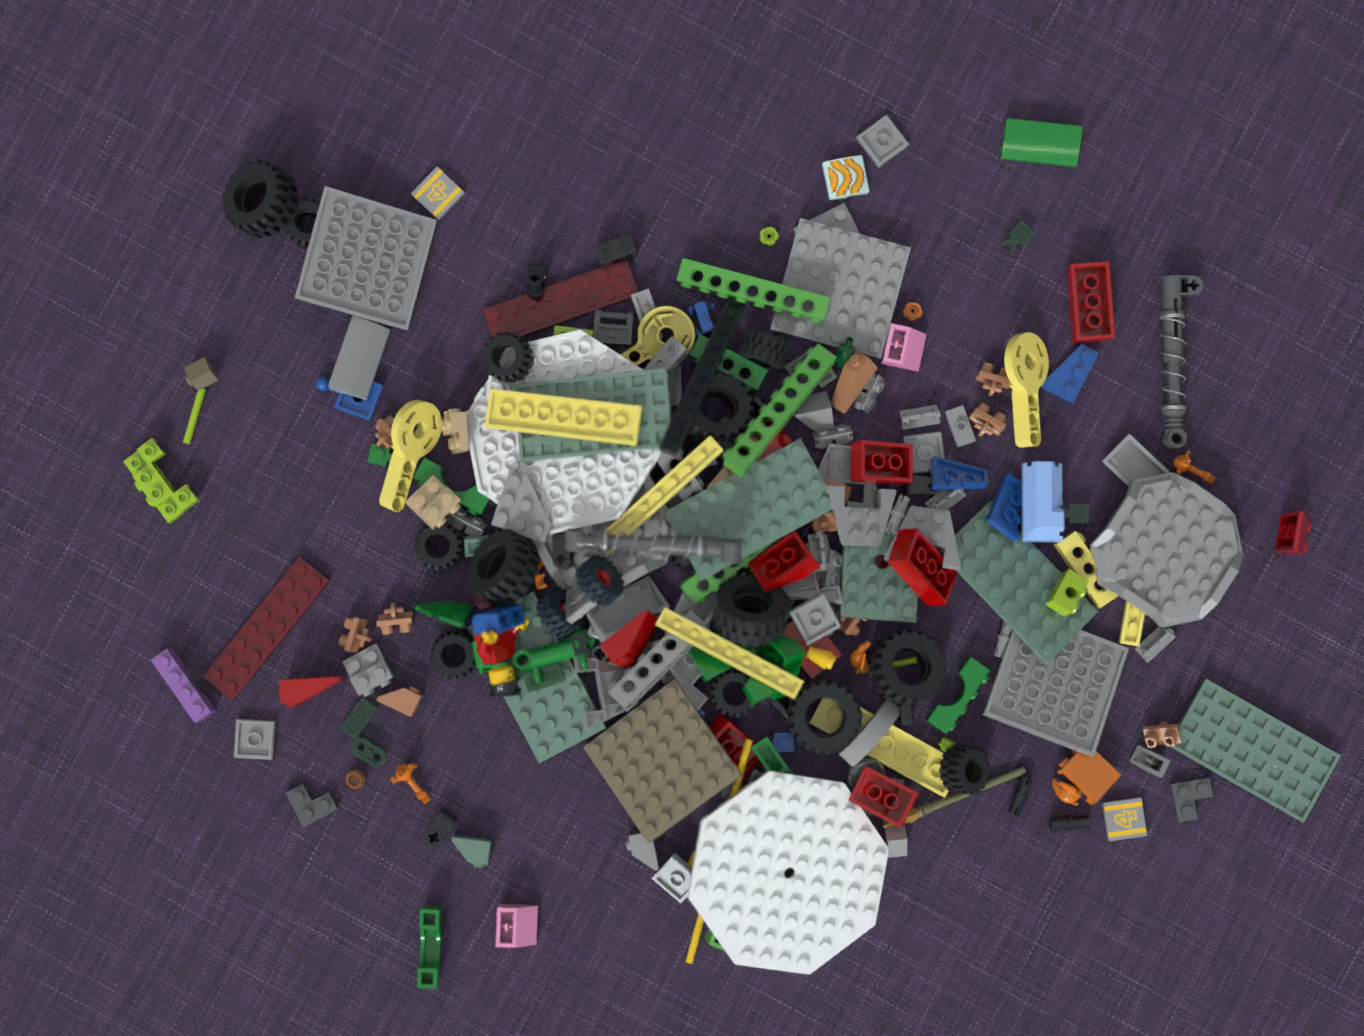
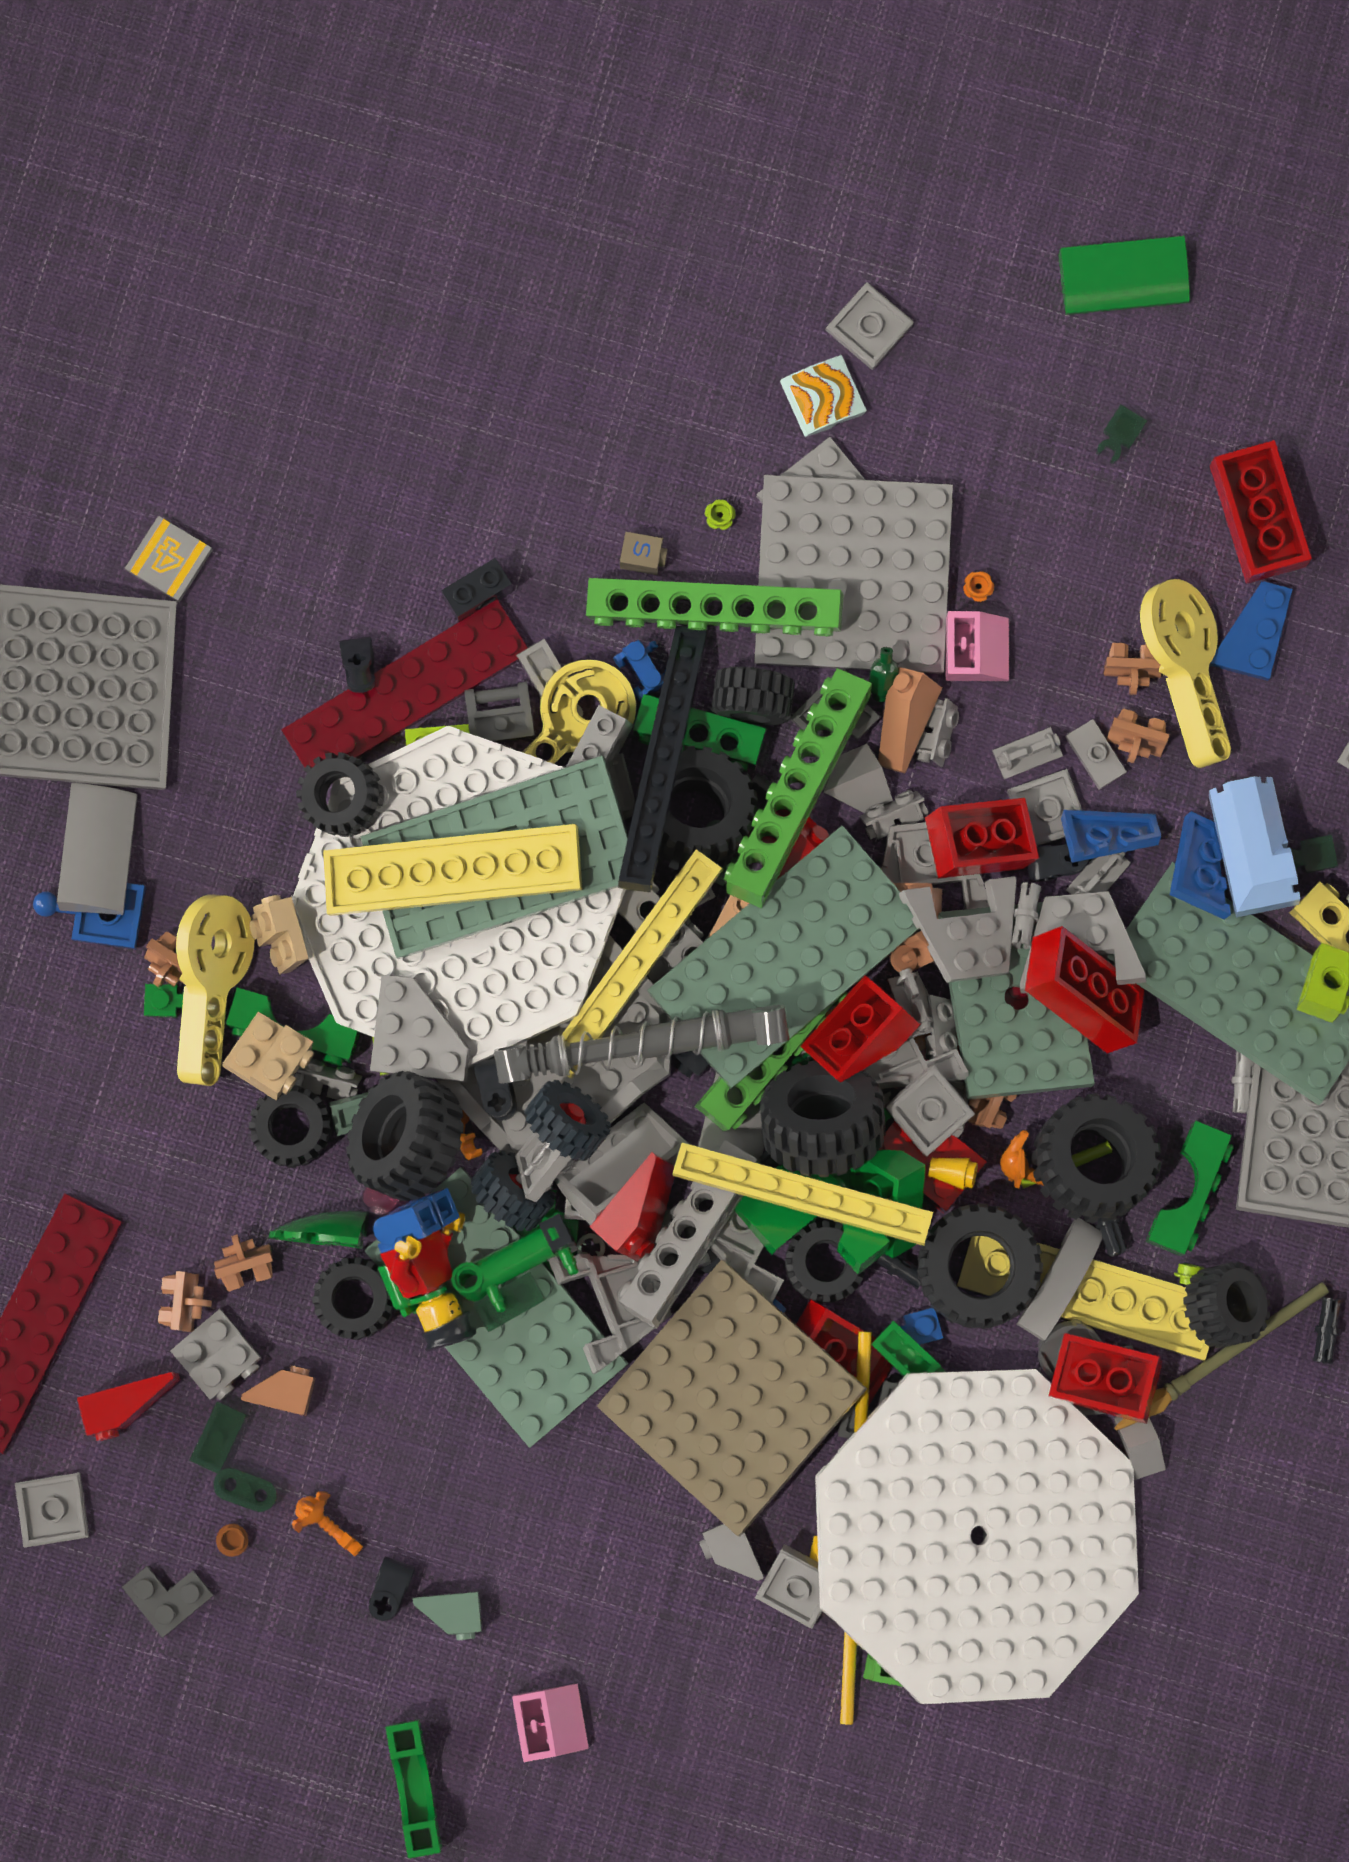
camera: 15 degrees left, 5 degrees down
(718, 249) = (642, 553): none -> dark tan brick

